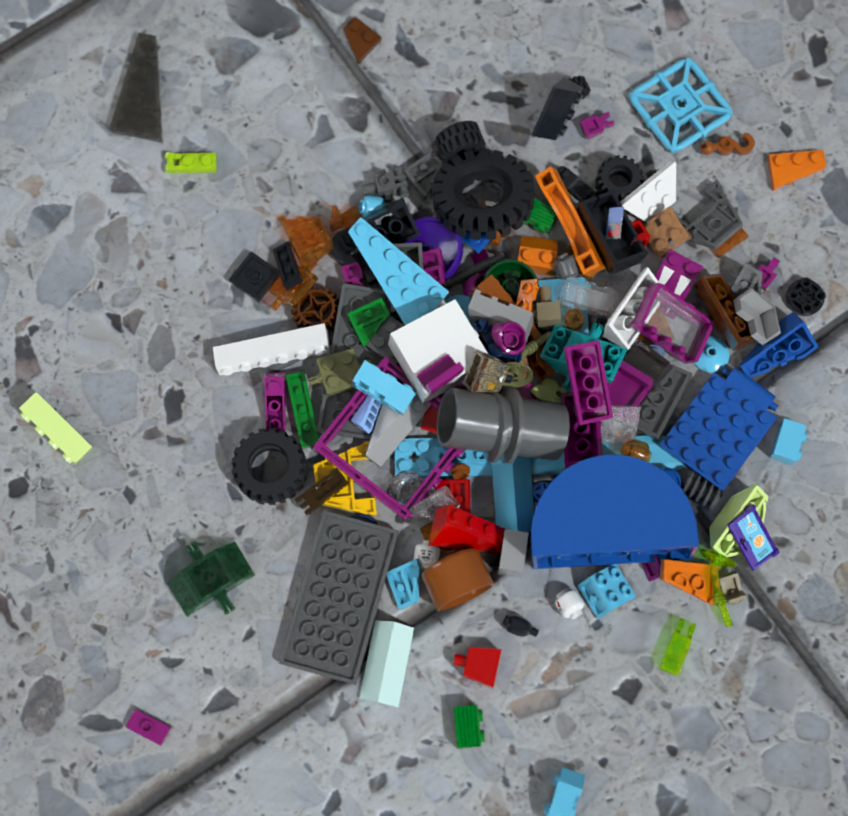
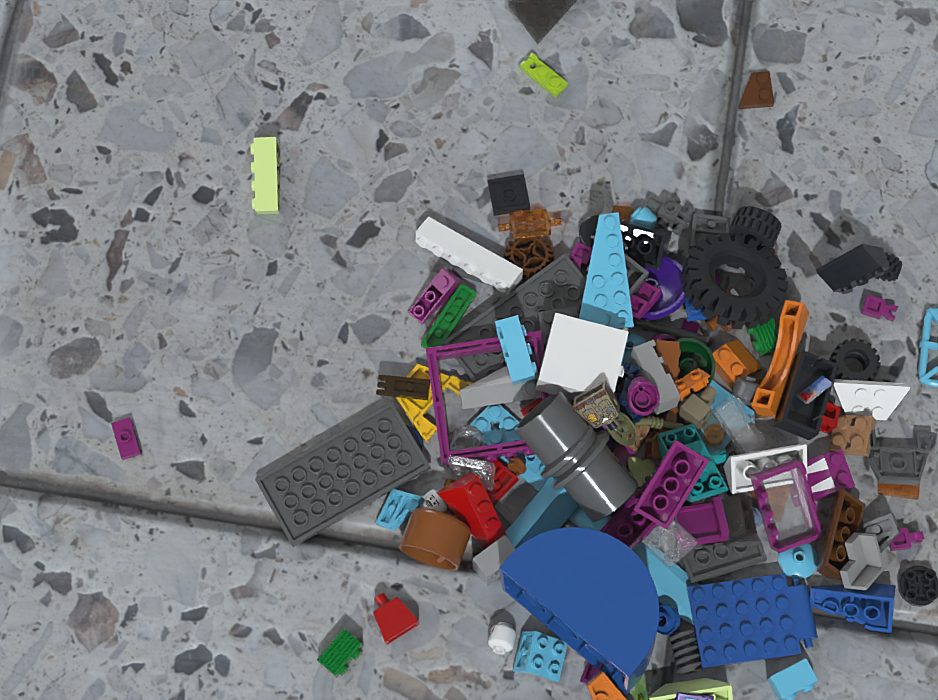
camera: 45 degrees right, 5 degrees down
(227, 567) = (286, 377): clear green slope -> none
(262, 442) = (376, 314): black tyre -> none
(287, 265) = (538, 206): black tile -> none
(307, 238) = (572, 201): clear orange wing -> none
(336, 220) = (607, 205): clear orange slope -> none
(337, 372) = (497, 308): olive plate -> none
(367, 414) = (481, 363): light blue slope -> none
(368, 319) = (557, 295): green wing -> none
(386, 663) = (330, 553): light aqua slope -> none
(439, 374) = (562, 374): magenta panel -> none
(519, 626) = (450, 618): black plant -> none
(575, 185) = (816, 336): black piece -> none
(636, 449) = (663, 575): clear orange head -> none

